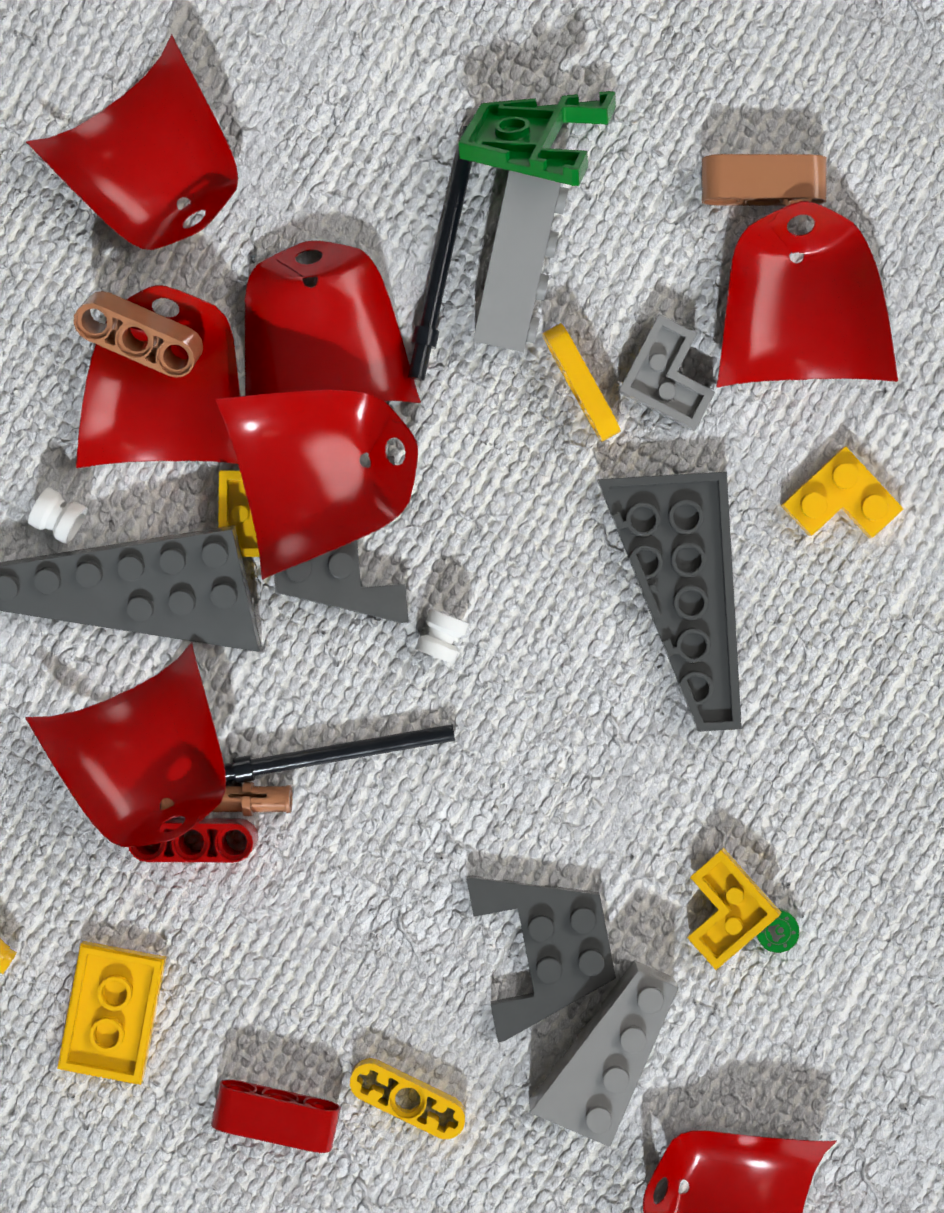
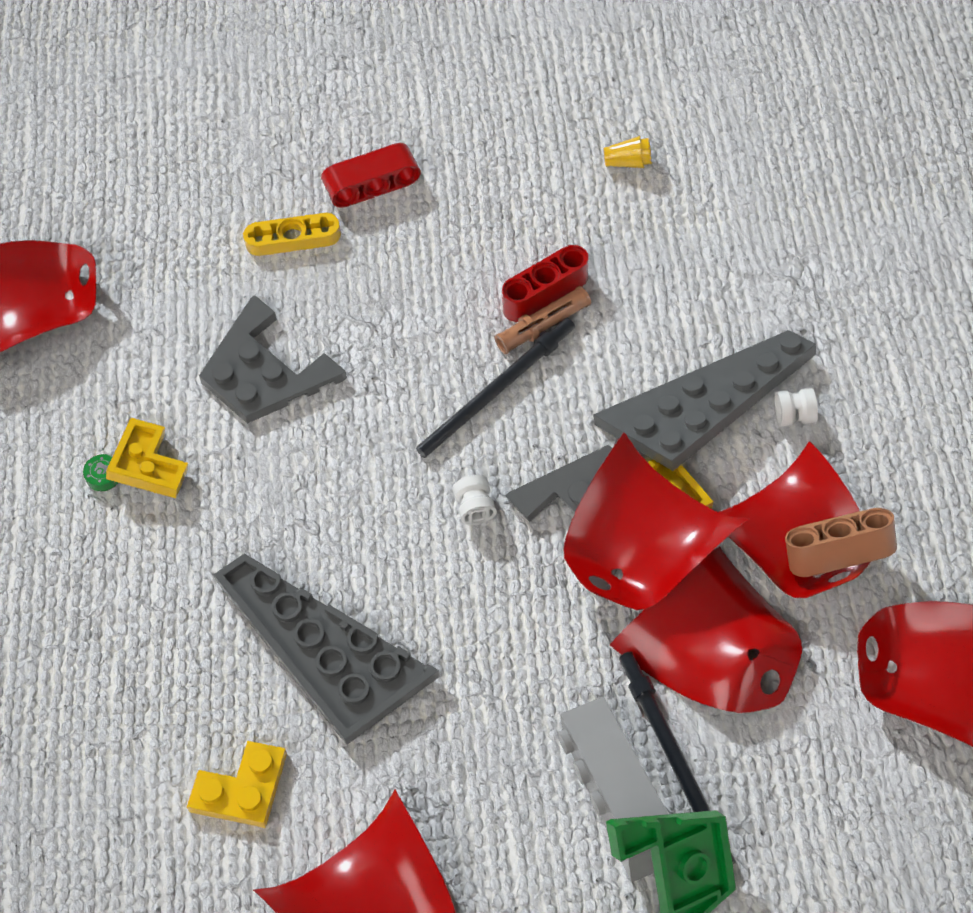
camera: 150 degrees right, 30 degrees down
(111, 1012) = (519, 171): yellow tile -> none
(138, 751) = (627, 298): red piece -> none
(581, 382) = (502, 731): yellow beam -> none
(603, 1065) = (173, 319): light grey wedge -> none
(656, 380) = (441, 770): light grey plate -> none

